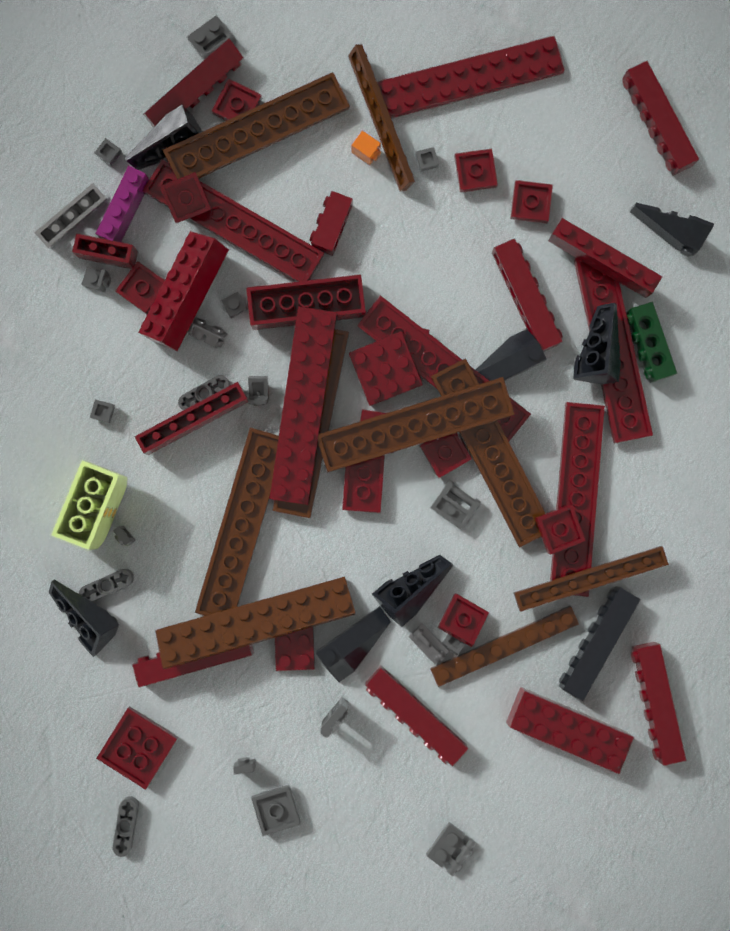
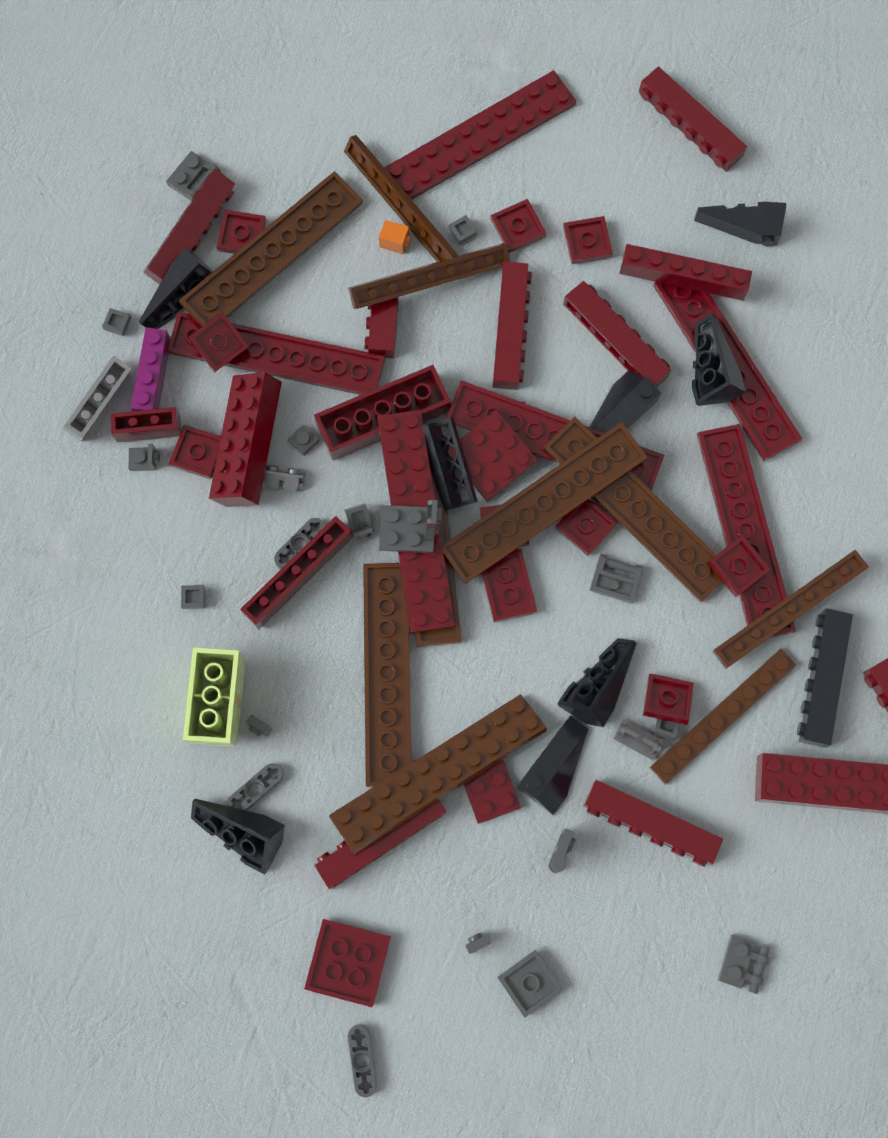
camera: 15 degrees left, 10 degrees down
(292, 412) = (409, 527): none -> dark grey bracket
(343, 365) = (442, 464): none -> black fence
(383, 193) = (428, 276): none -> reddish brown plate
(439, 258) = (510, 326): none -> dark red brick
(647, 314) = (764, 333): dark green brick -> none

